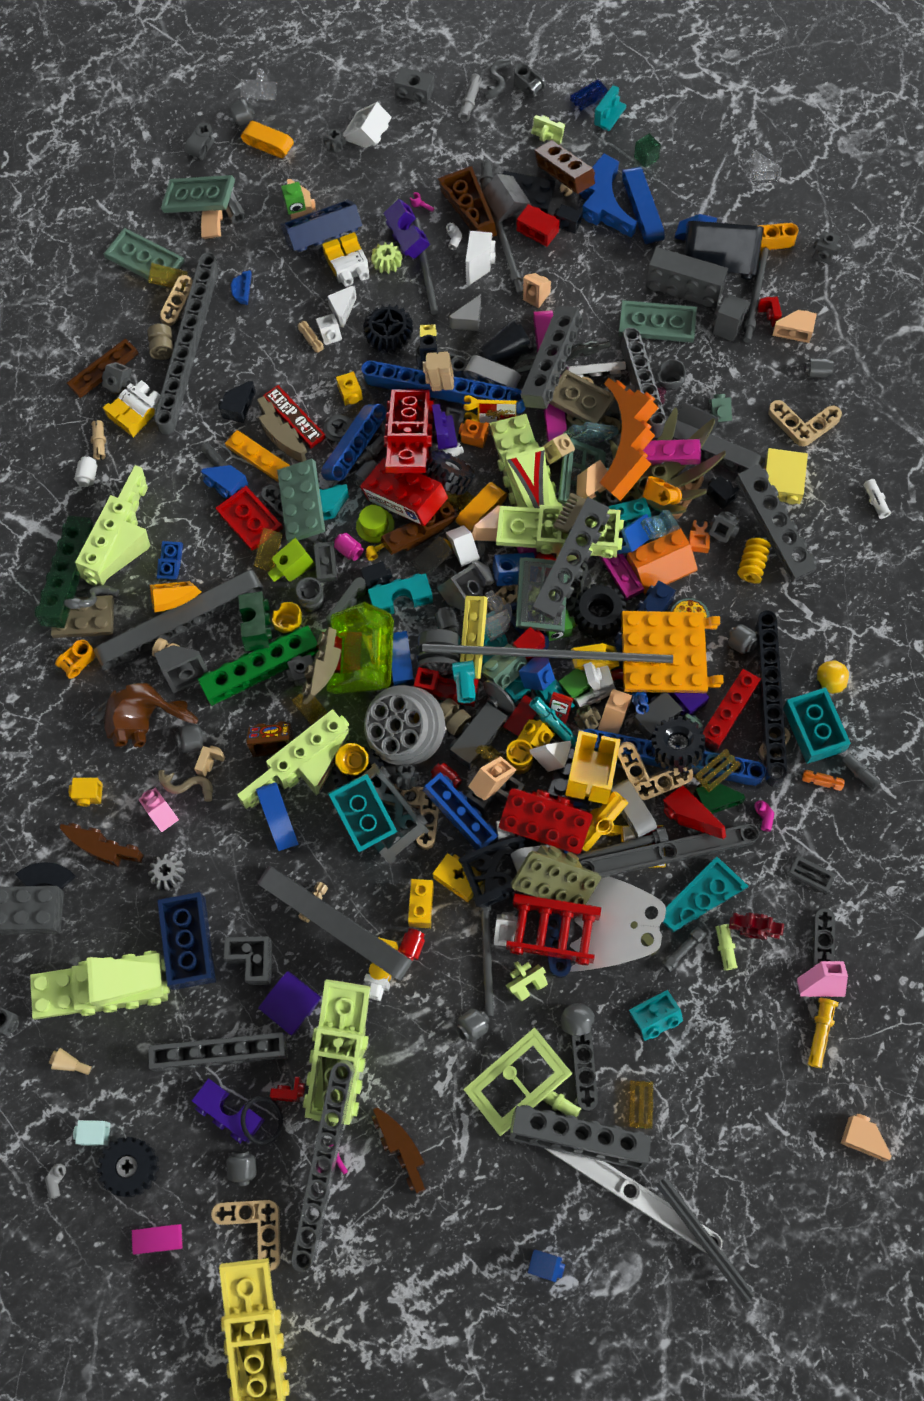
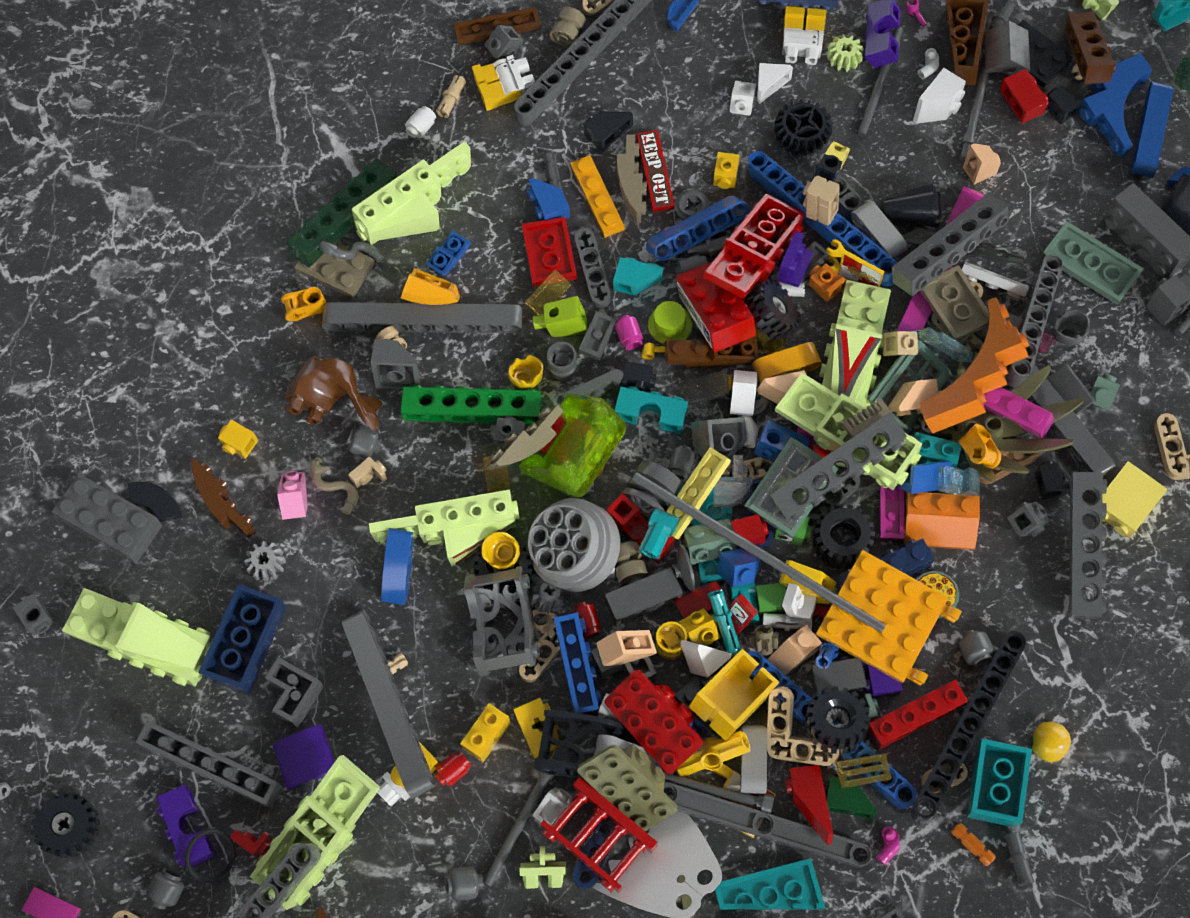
camera: 30 degrees right, 0 degrees up
(63, 1061) = (67, 689): tan cone -> none
(91, 1133) = (52, 772): light aqua brick -> none
(255, 620) = (487, 371): dark green arch -> none
(269, 739) = (436, 484): reddish brown slope -> none
(301, 500) = (608, 261): sand green plate -> none
(310, 336) = (720, 96): tan axle -> none
(362, 812) = (476, 610): teal brick -> none
(401, 660) = (612, 476): blue slope -> none
(467, 316) = (892, 156): light grey slope -> none
(488, 752) = (642, 624): clear yellow tile -> none
(699, 538) = (995, 517): orange plate -> none
(754, 560) = (1038, 570): yellow piece -> none

